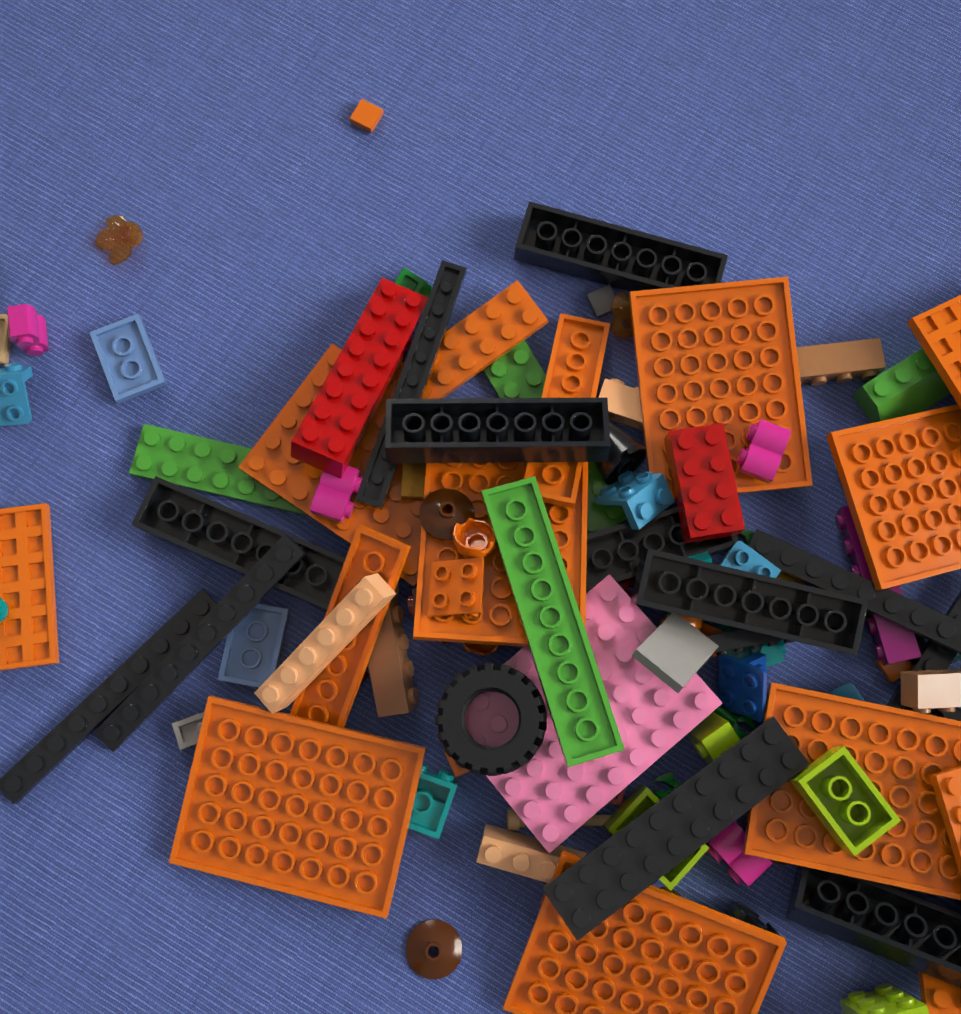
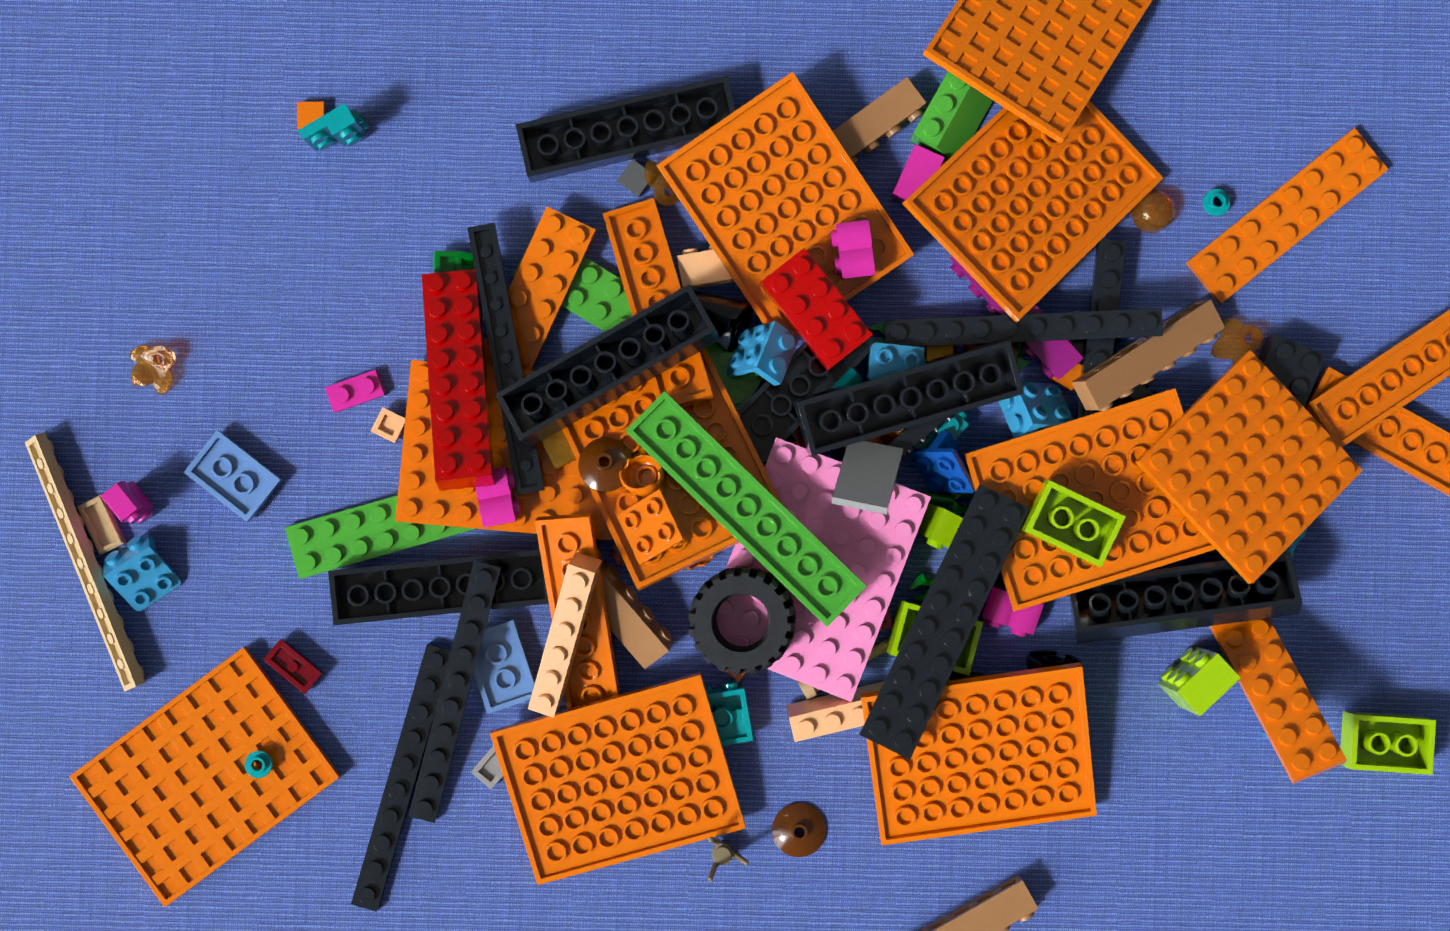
camera: 20 degrees left, 10 degrees up
(78, 544) = (293, 666): none -> dark red plate
(270, 346) = (355, 391): none -> dark pink plate
(281, 387) = (389, 425): none -> light nougat plate
(351, 932) = (723, 854): none -> dark tan plant
(380, 128) = (339, 124): none -> teal plate
(850, 676) = (1037, 408): none -> dark azure bracket
(852, 415) = (917, 170): none -> dark pink brick

